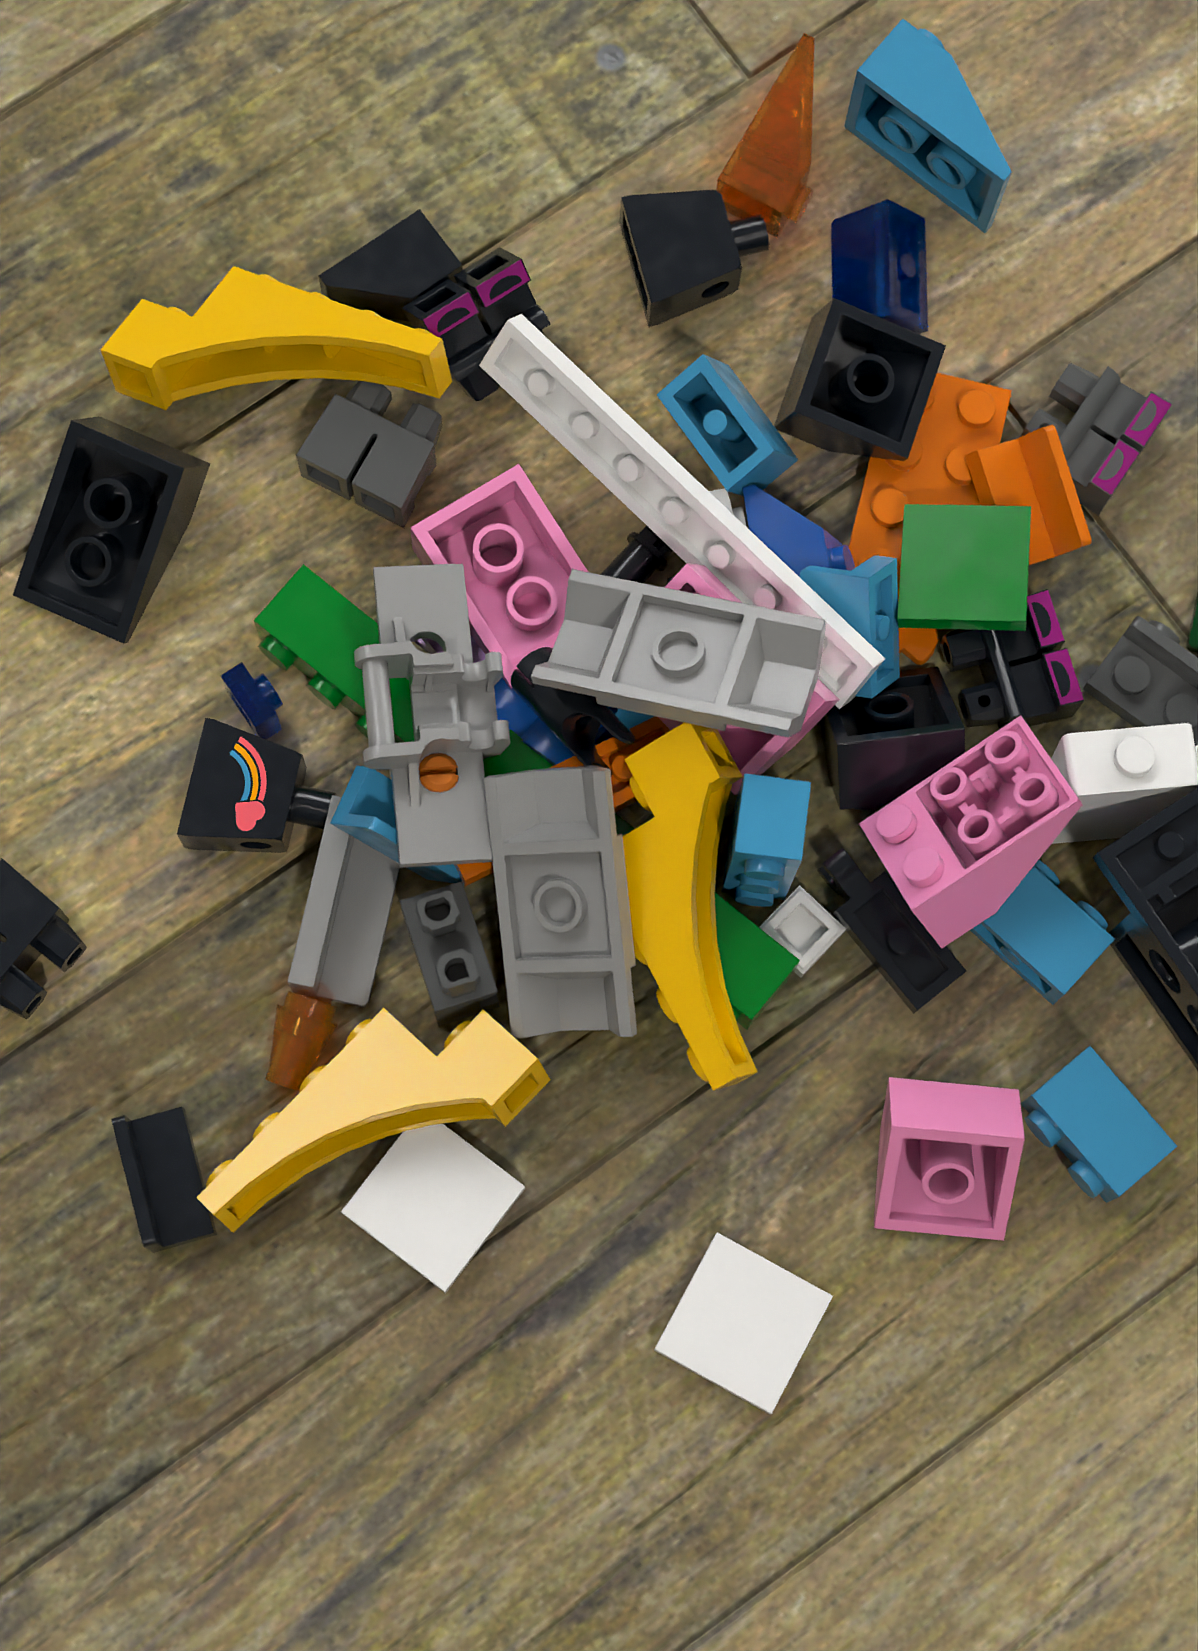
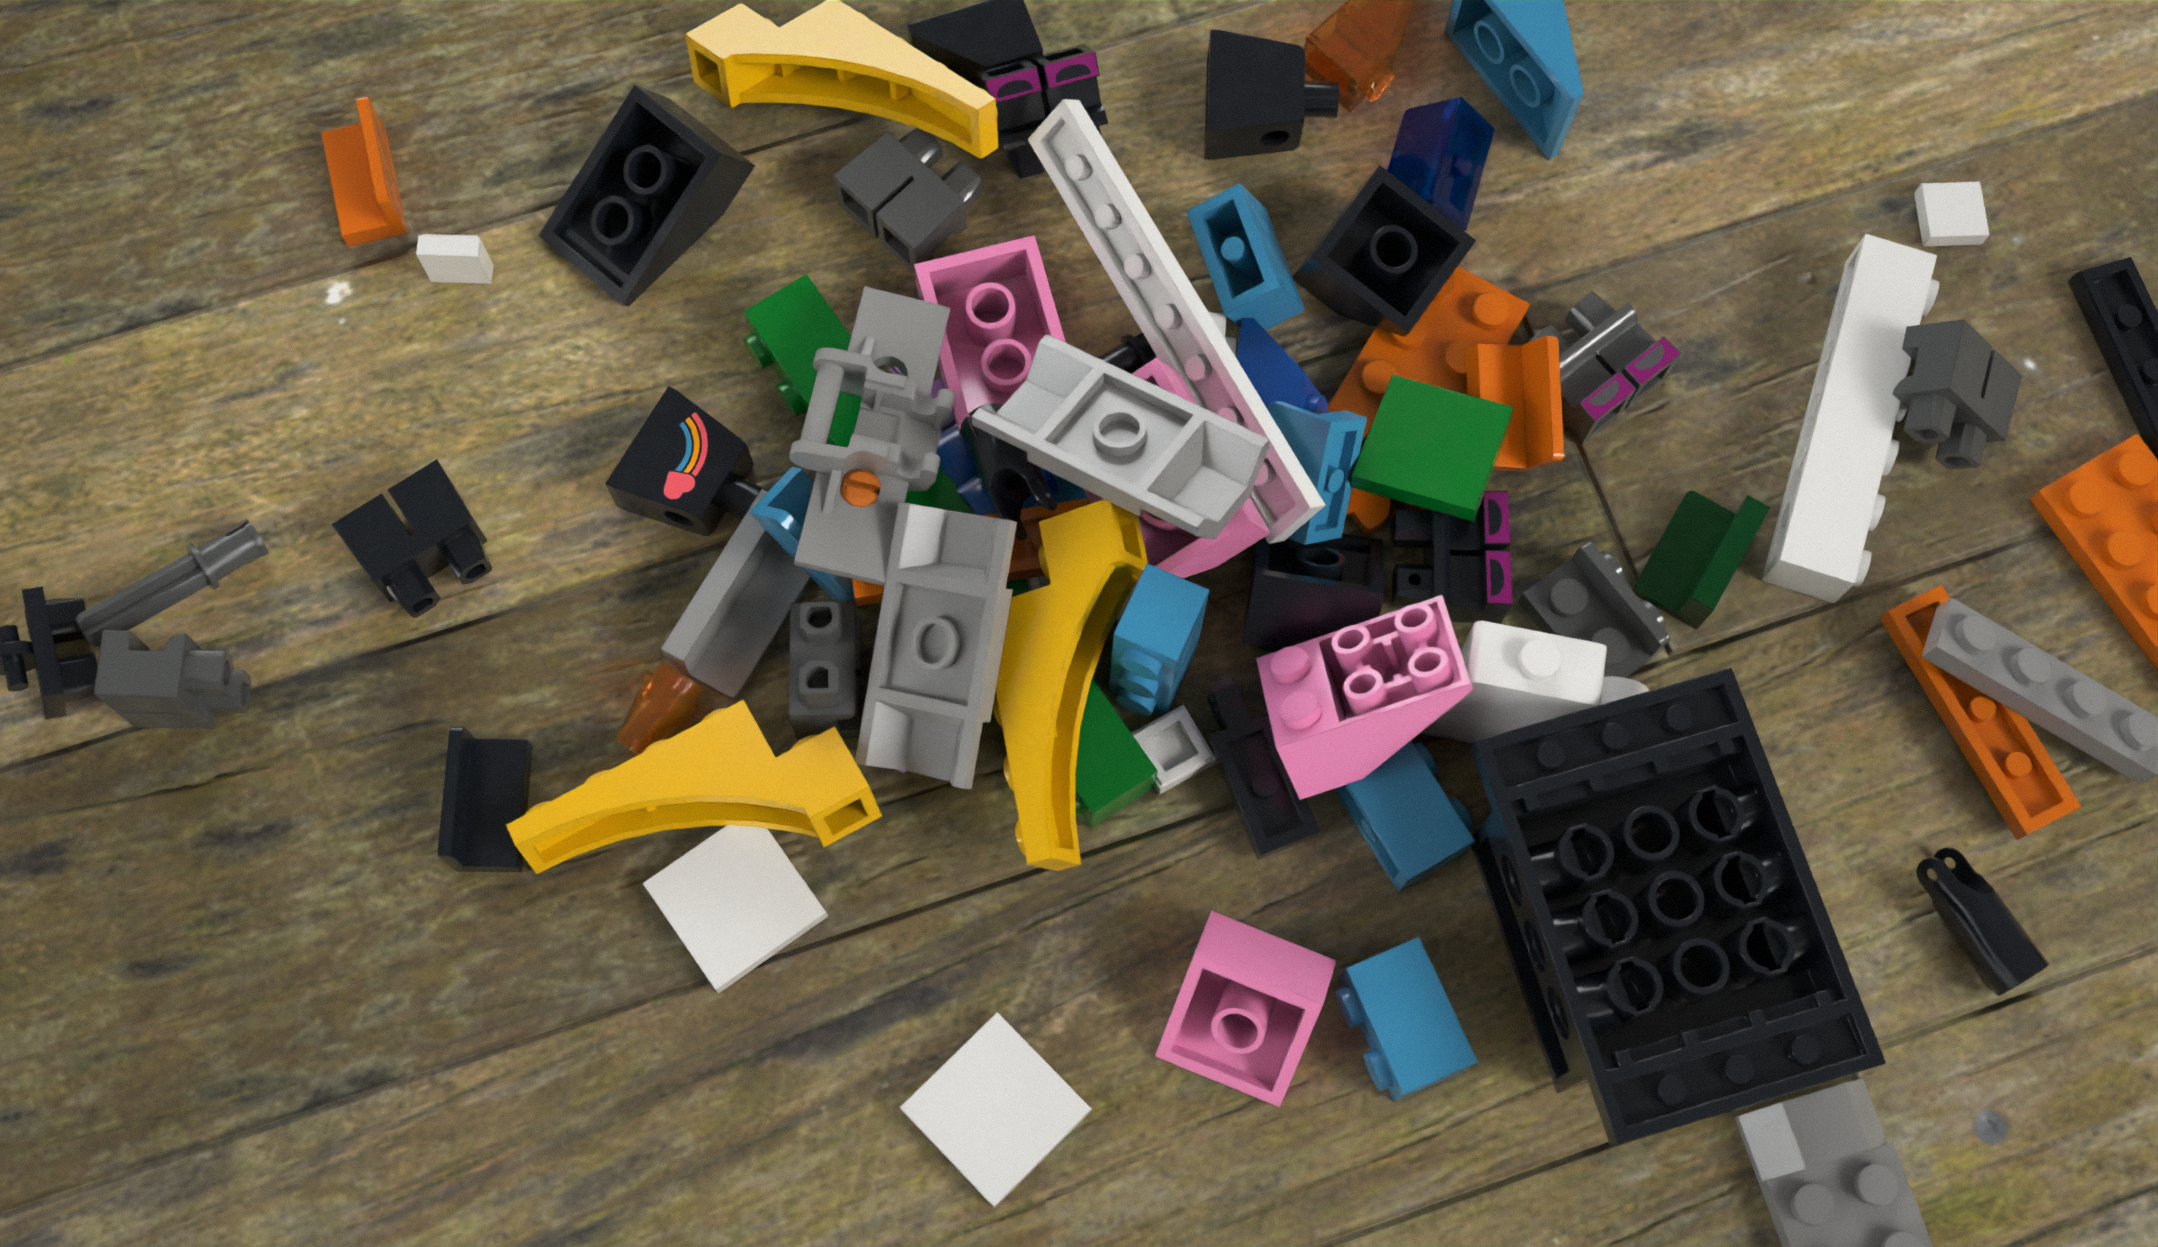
camera: 20 degrees right, 5 degrees down
(254, 699) = (723, 386): clear blue plate -> none

